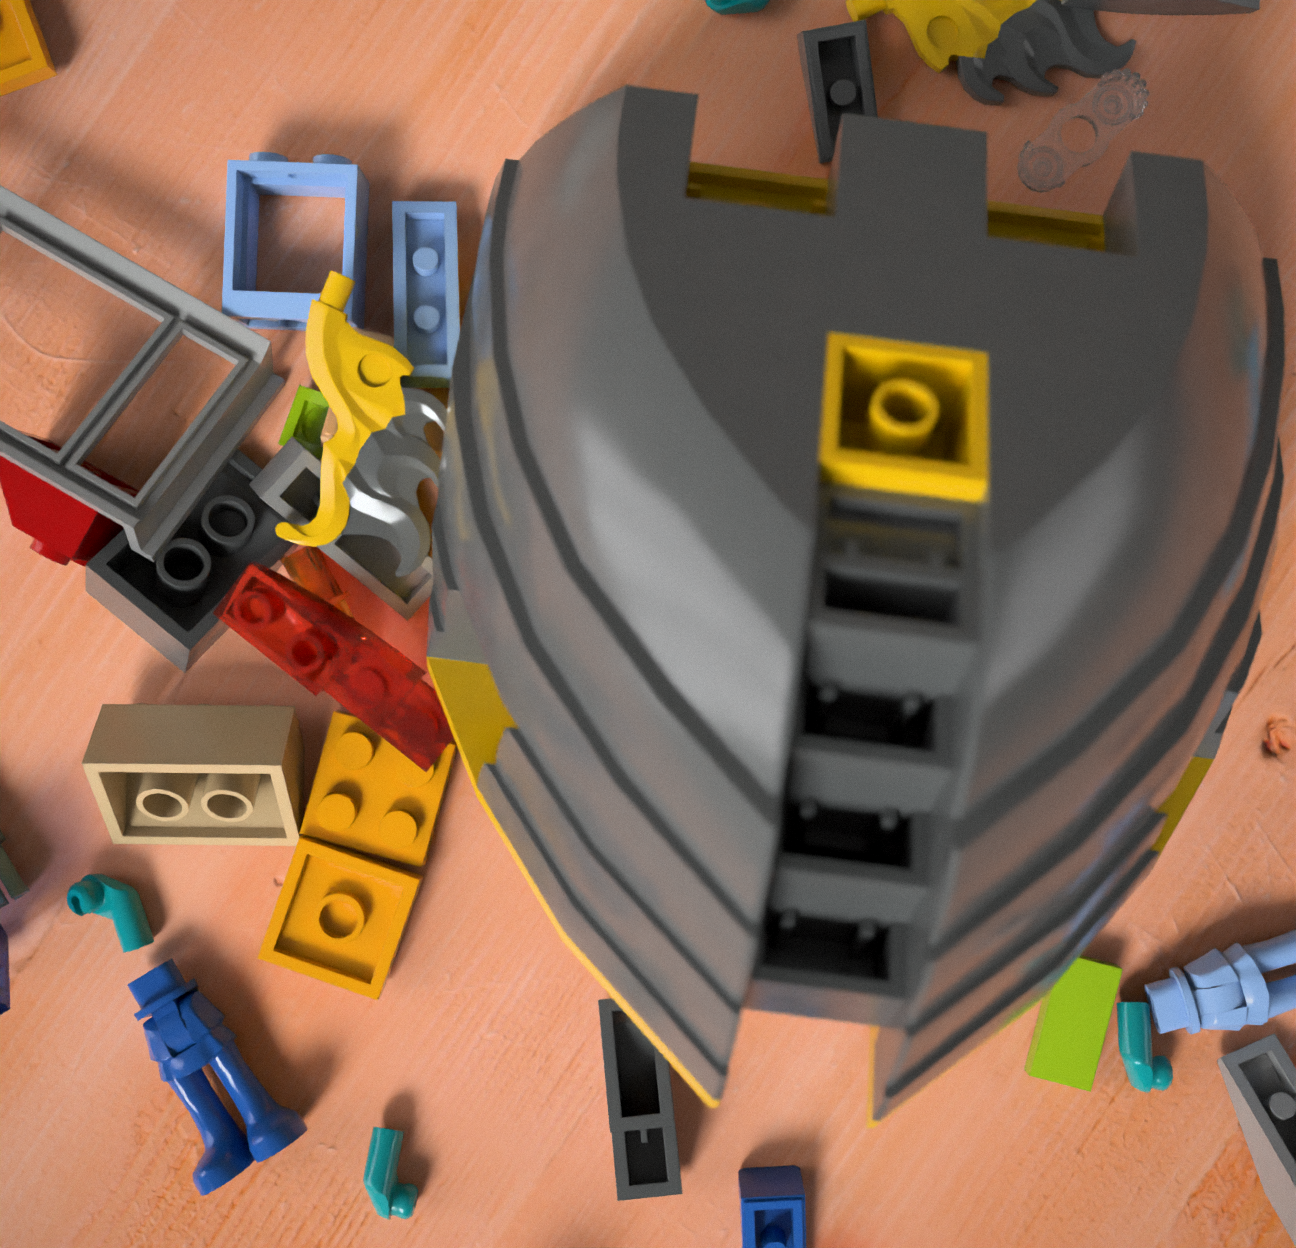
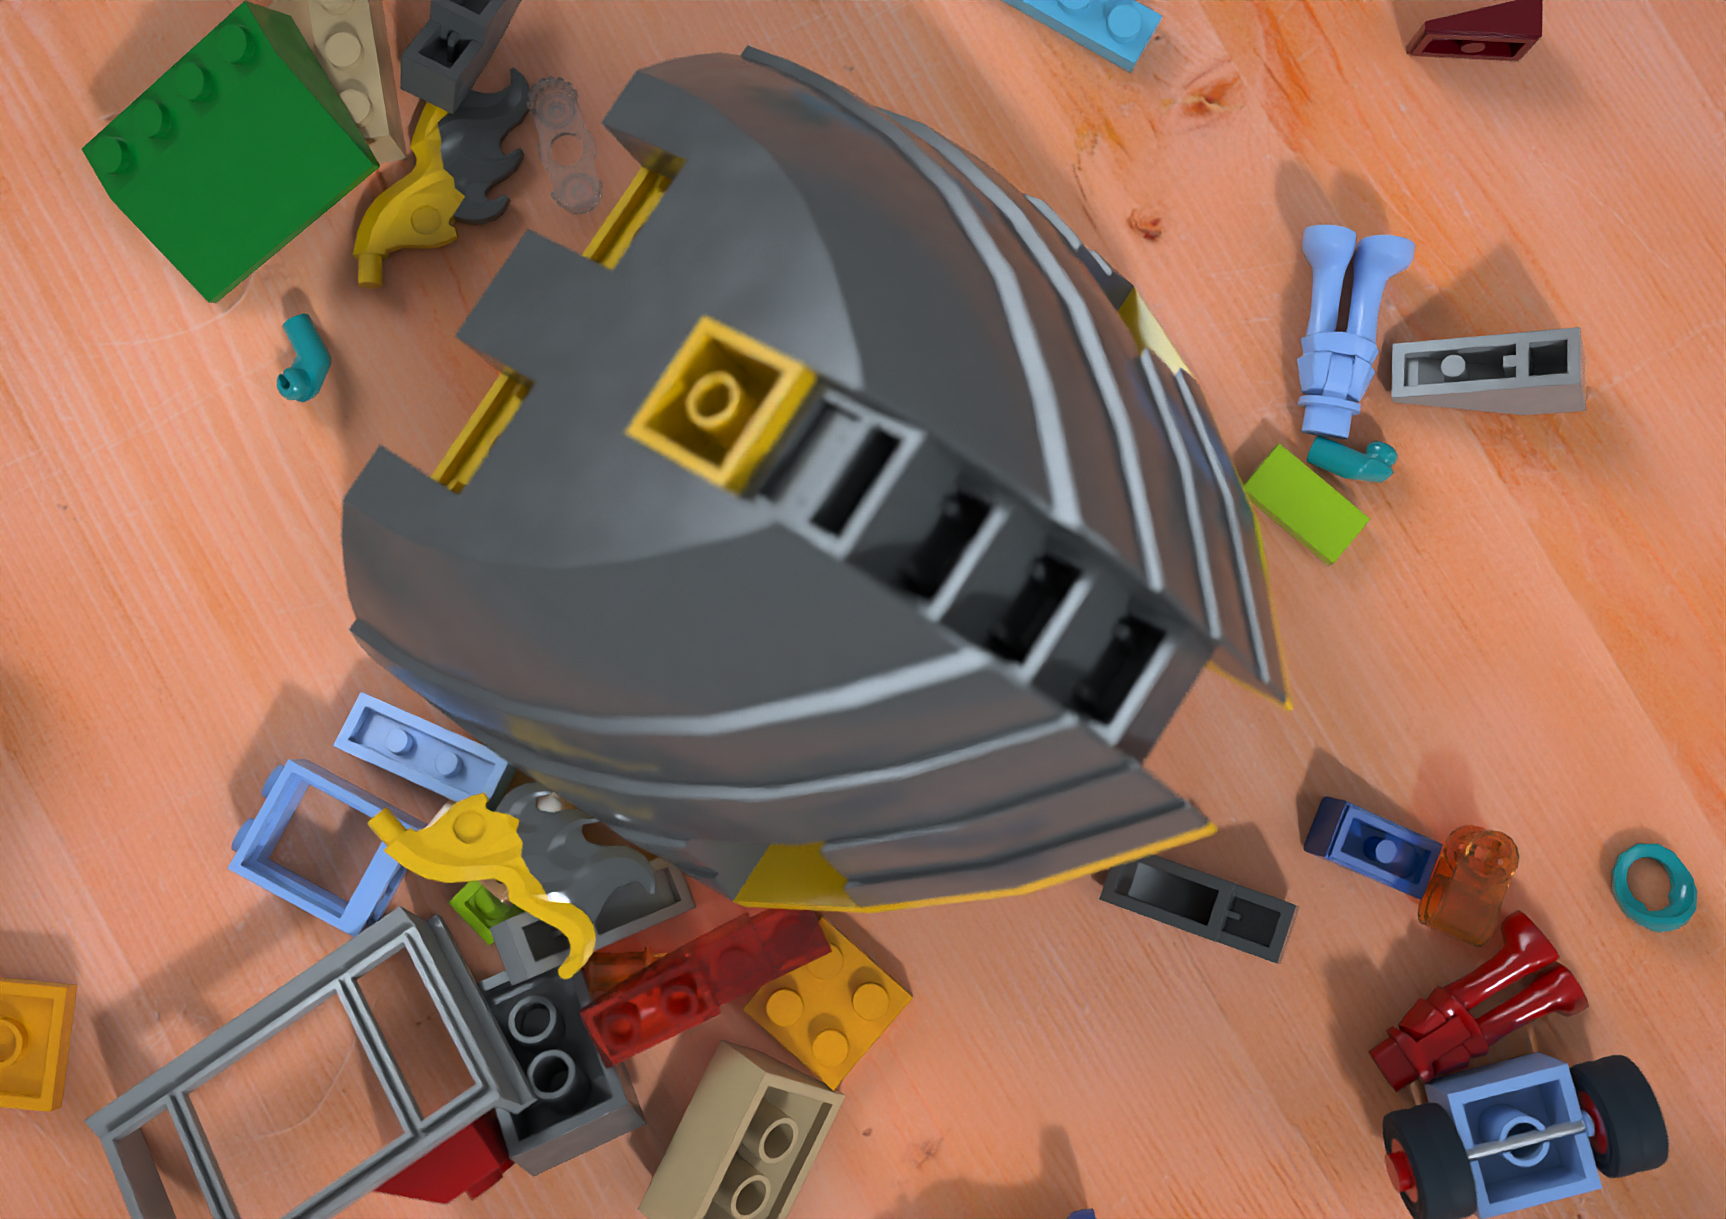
camera: 70 degrees left, 5 degrees down
(340, 917) = (922, 1090): light orange plate -> none
(380, 1176) = (1165, 1164): teal arm -> none
(836, 79) = (422, 325): dark grey slope -> none

